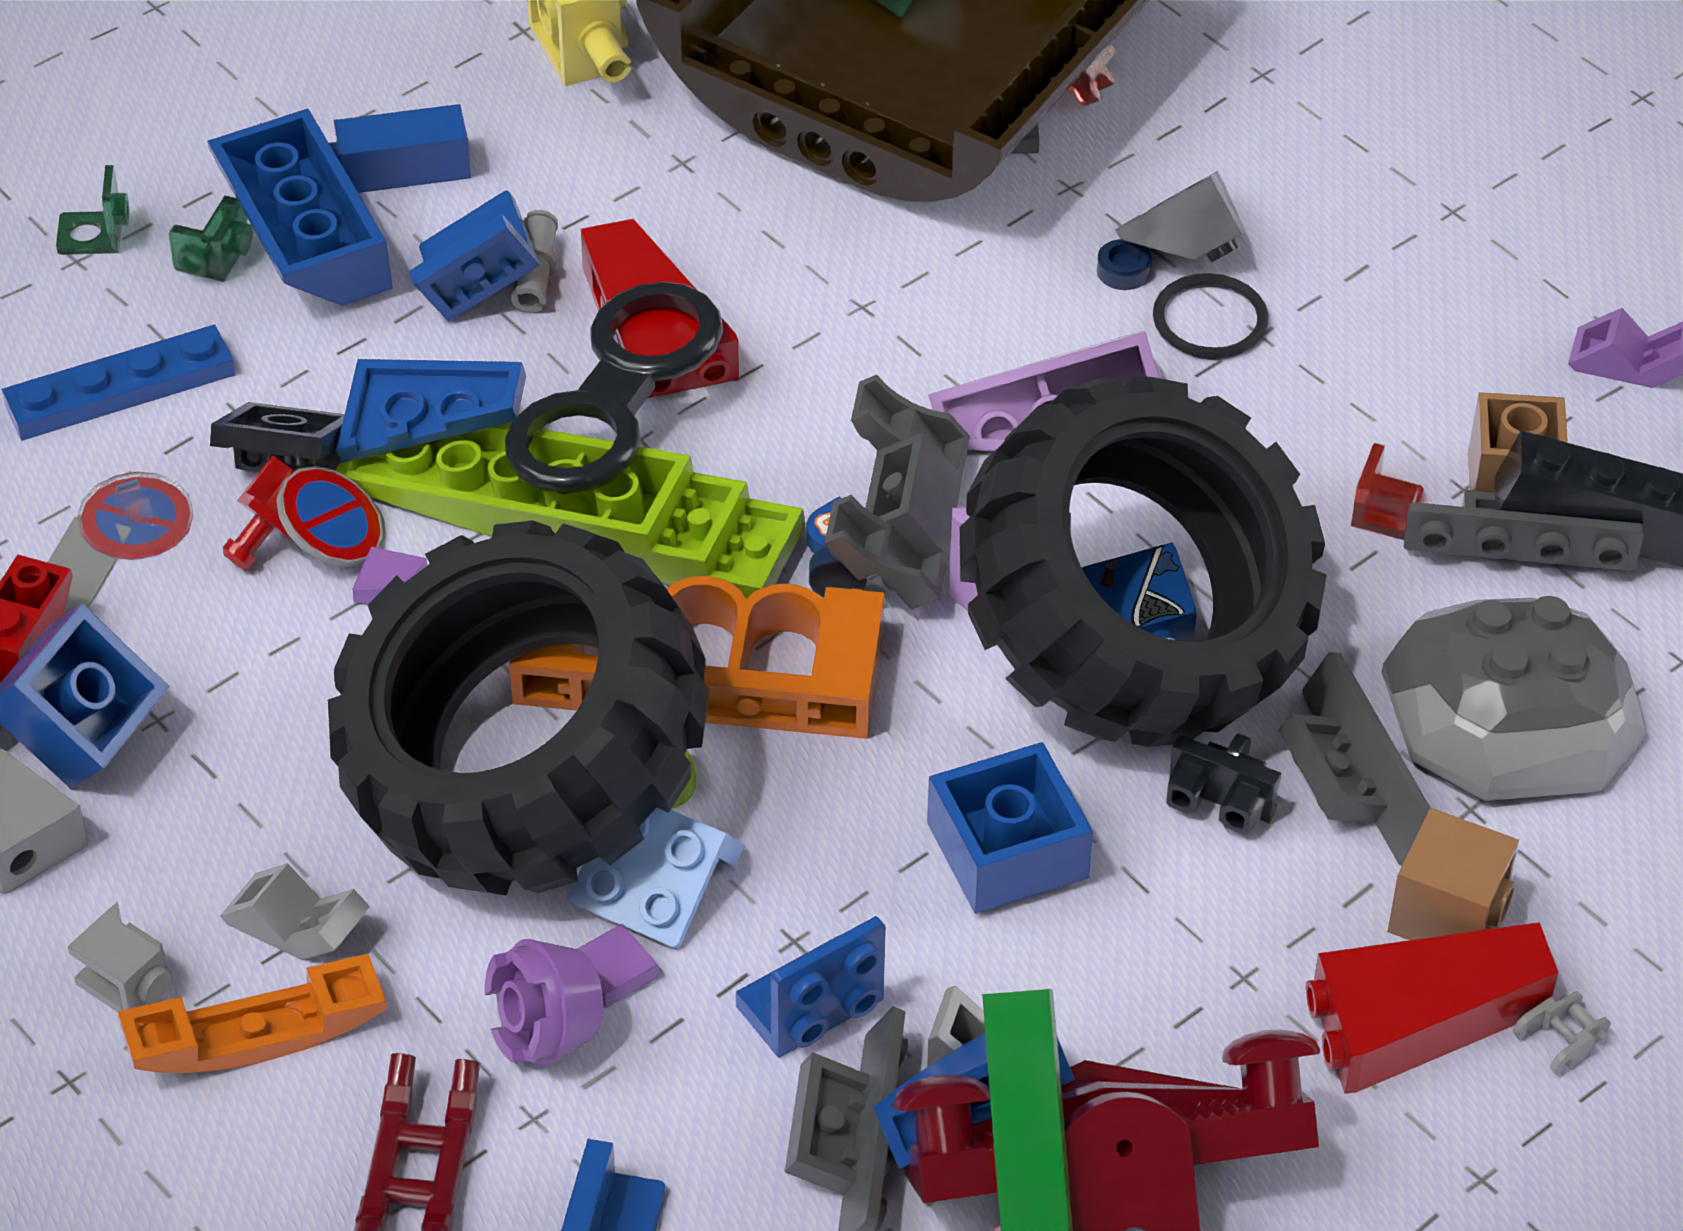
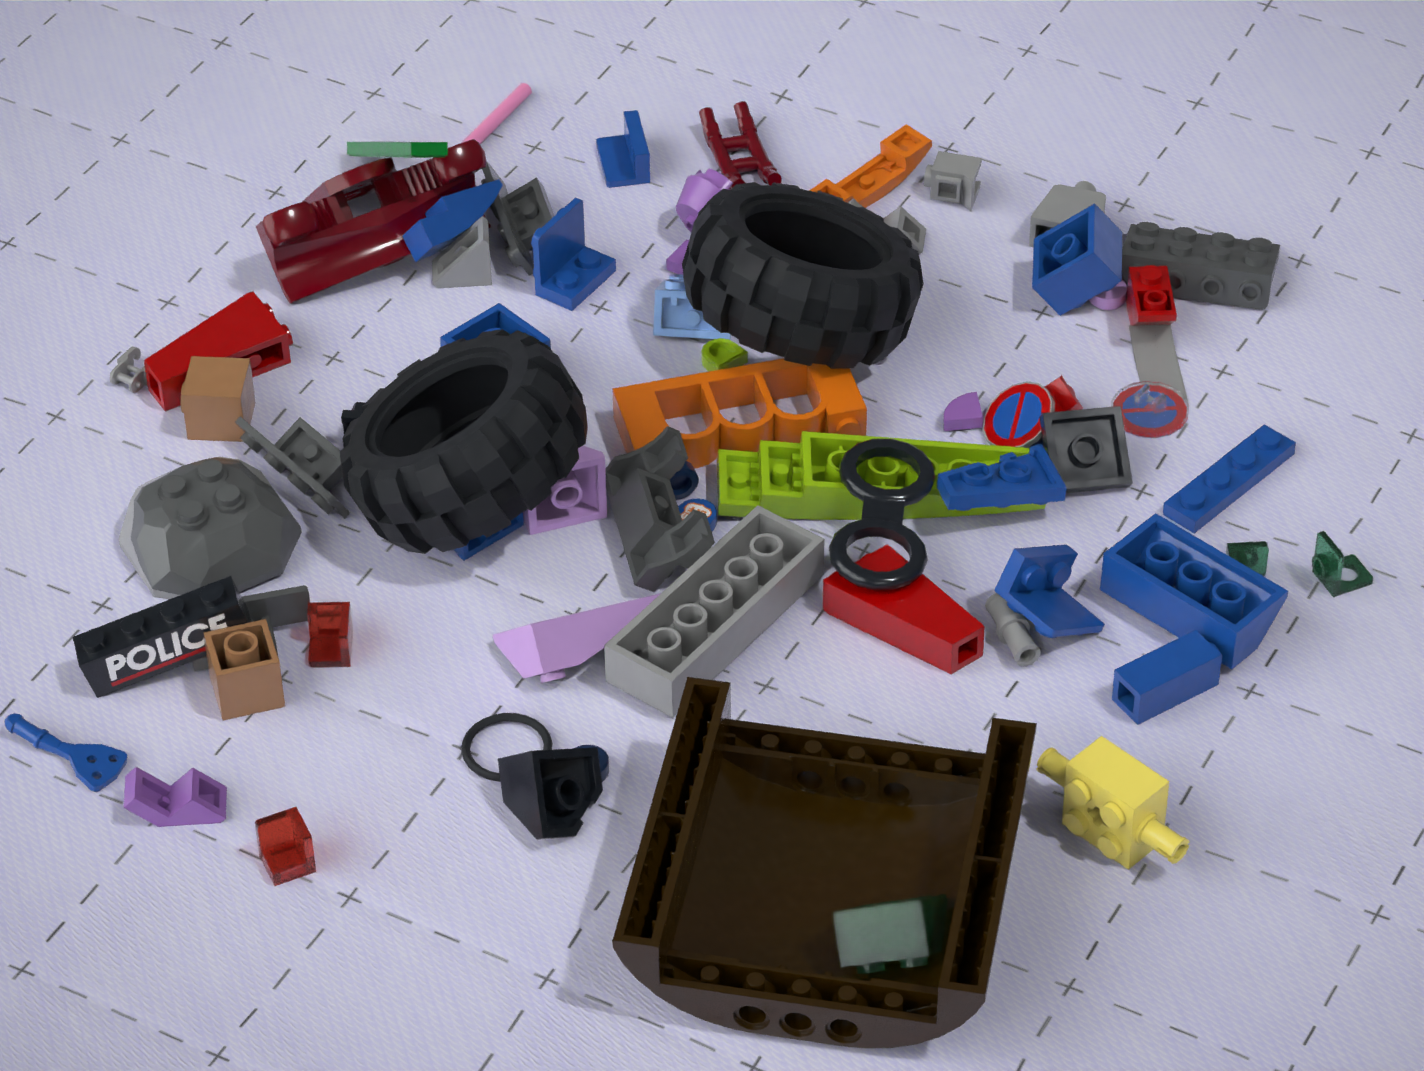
camera: 160 degrees right, 5 degrees down
(922, 335) = (714, 609): none -> light grey brick
(1516, 256) = (285, 846): none -> clear red panel

